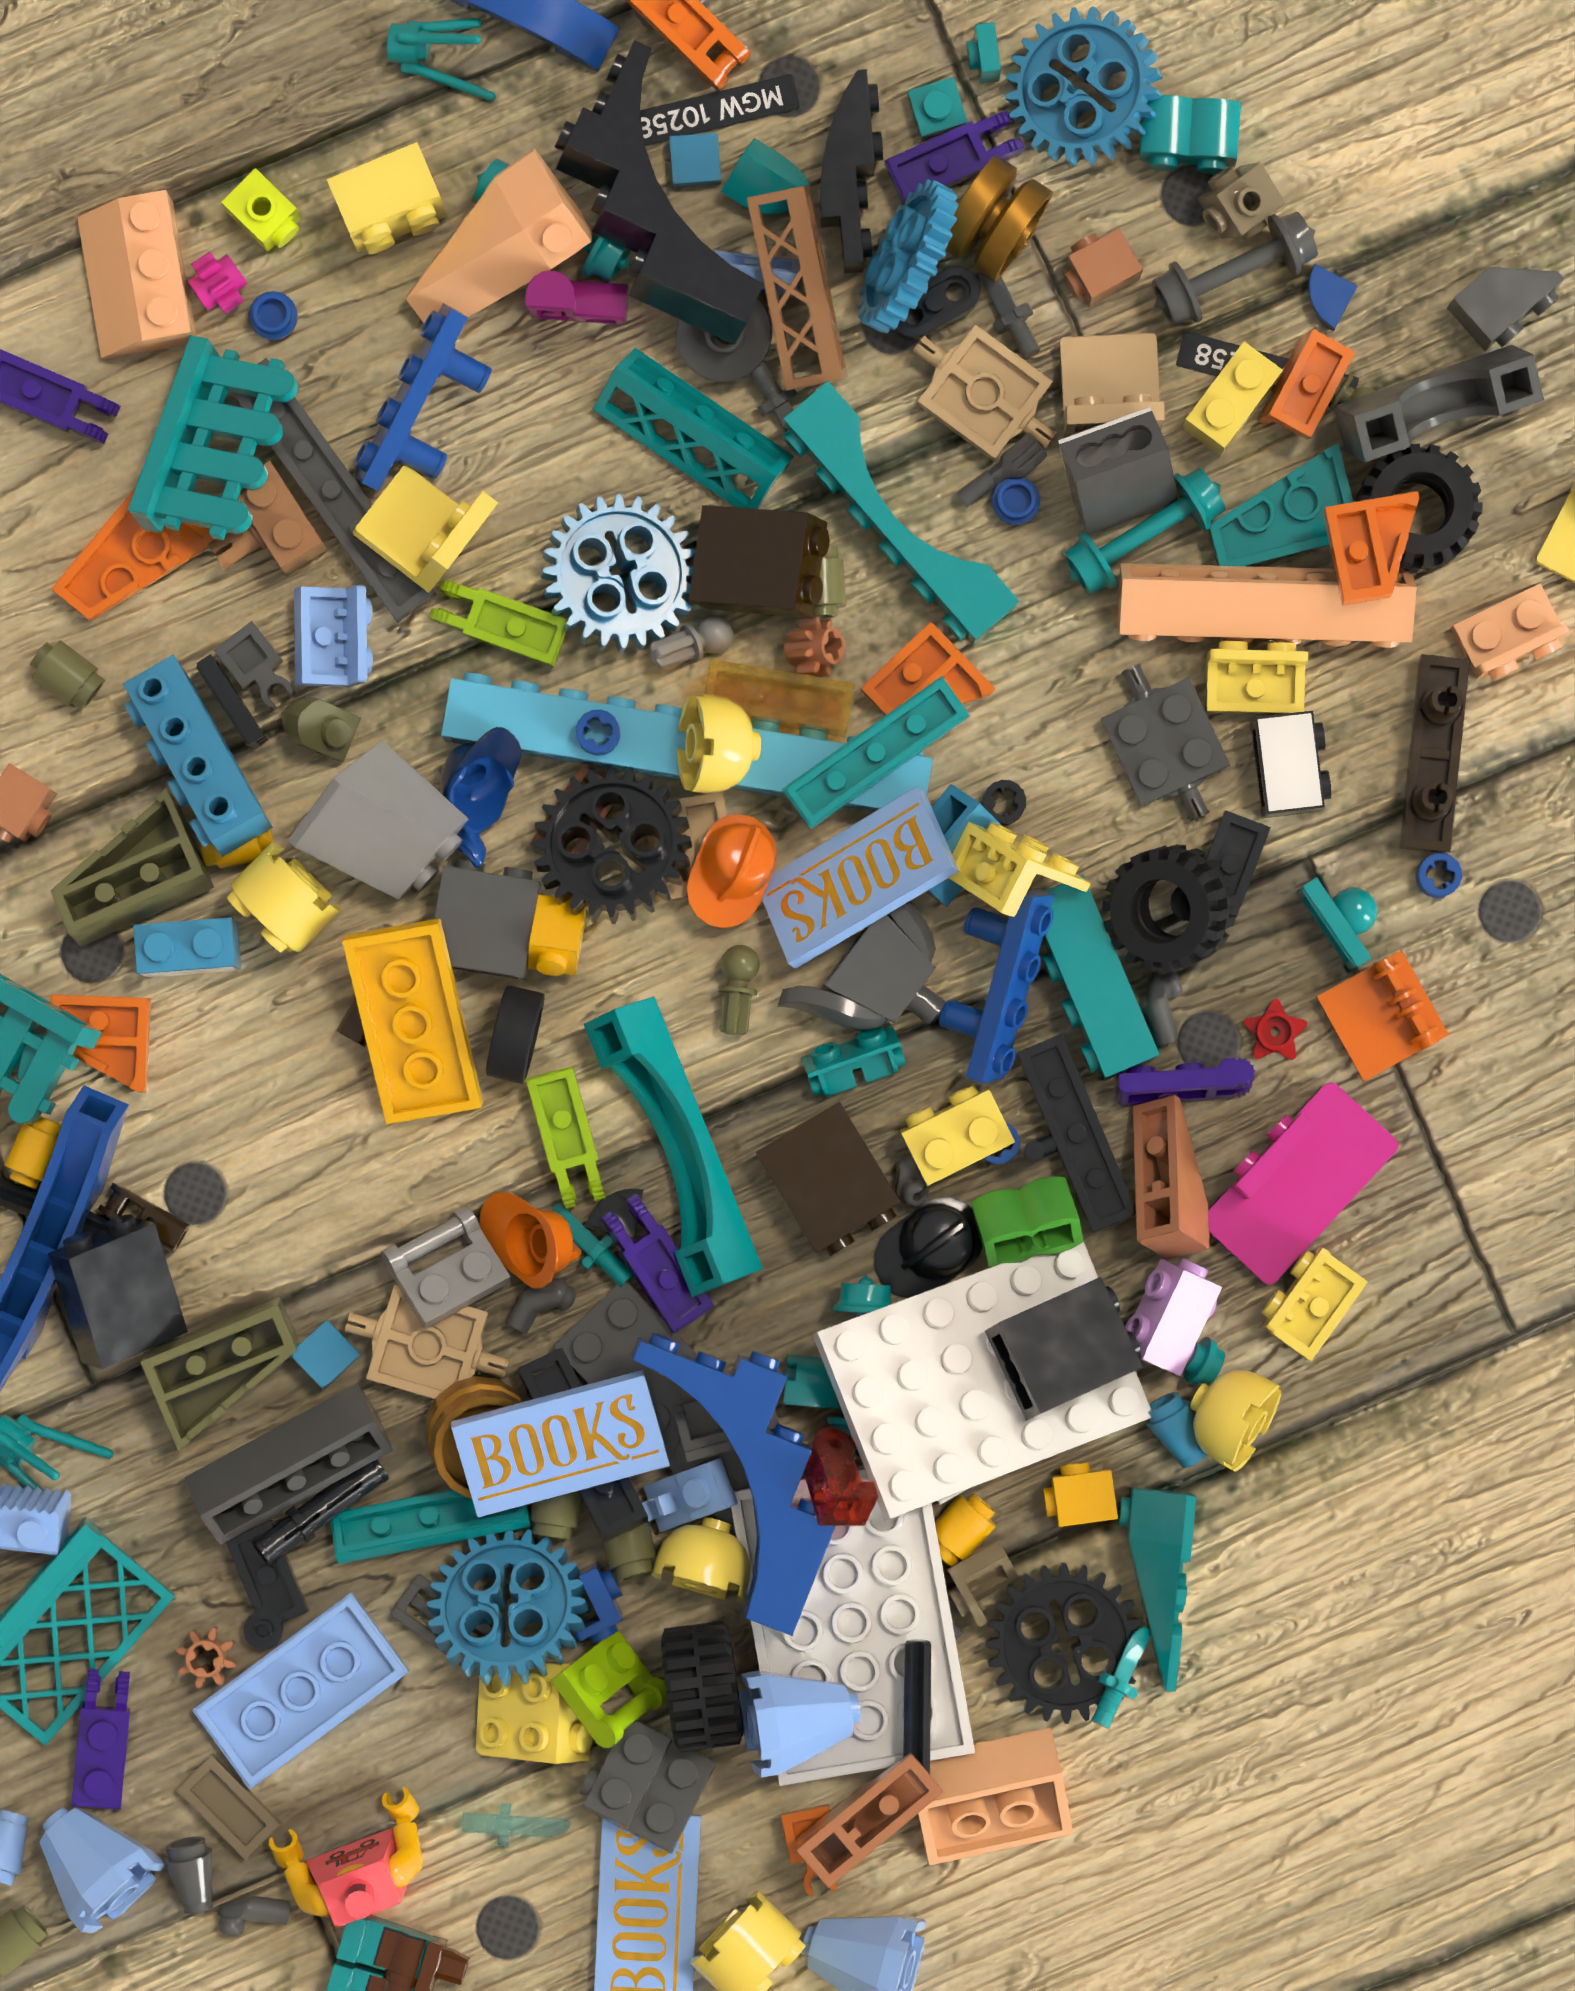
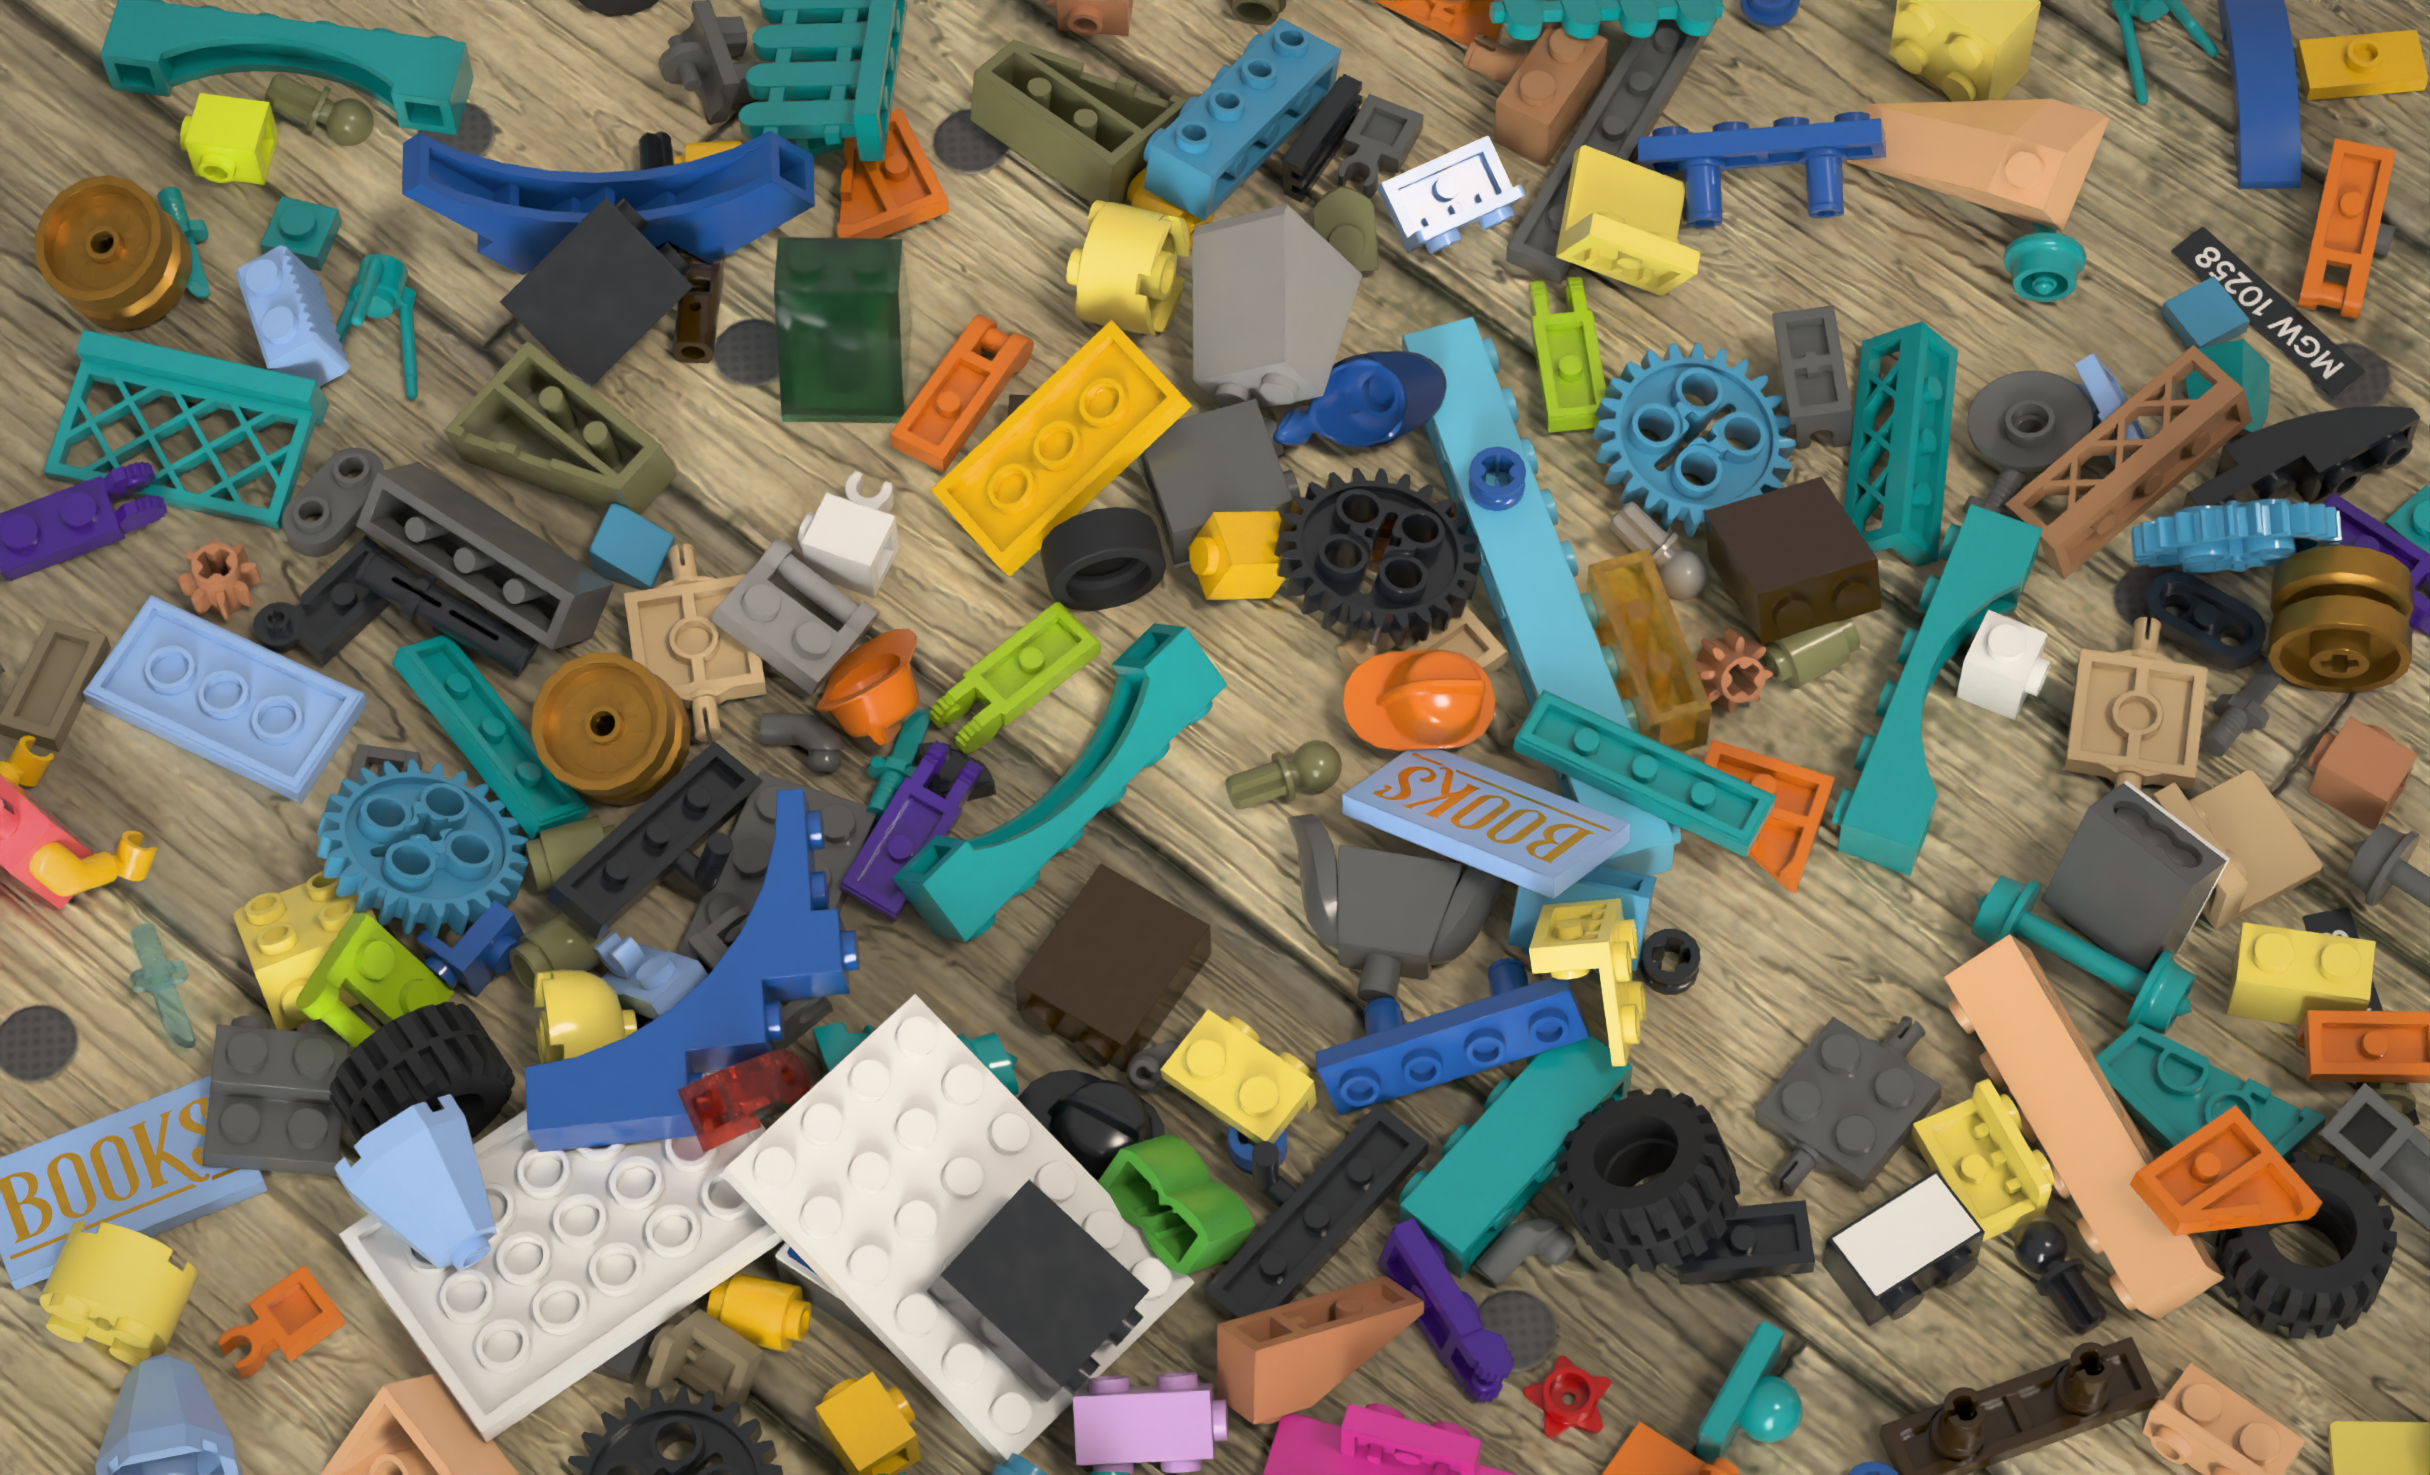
camera: 65 degrees right, 25 degrees down
(178, 1545) = (334, 497): none -> dark grey plate
(187, 947) = (1024, 209): dark azure brick -> none
(238, 1131) = (842, 329): none -> clear green slope
(314, 1064) = (960, 393): none -> orange plate
(401, 1198) = (851, 538): none -> white brick
(557, 298) = (1960, 248): magenta brick -> none
(560, 1443) = (642, 787): light blue tile -> none
(612, 462) = (1814, 374): none -> dark grey hinge
(670, 262) = (2069, 299): black arch -> none
(716, 744) = (1554, 588): light yellow cylinder -> none
(831, 1064) = (1288, 951): teal hinge -> none
(867, 1819) = (334, 1331): nougat slope -> none
(905, 460) = (2003, 665): none -> white brick
(917, 1700) = (498, 1335): black axle -> none
(1013, 463) = (2073, 783): dark grey piece -> none
(1016, 501) = (2032, 811): blue plate -> none
(1330, 674) = (2042, 1250): none -> black axle

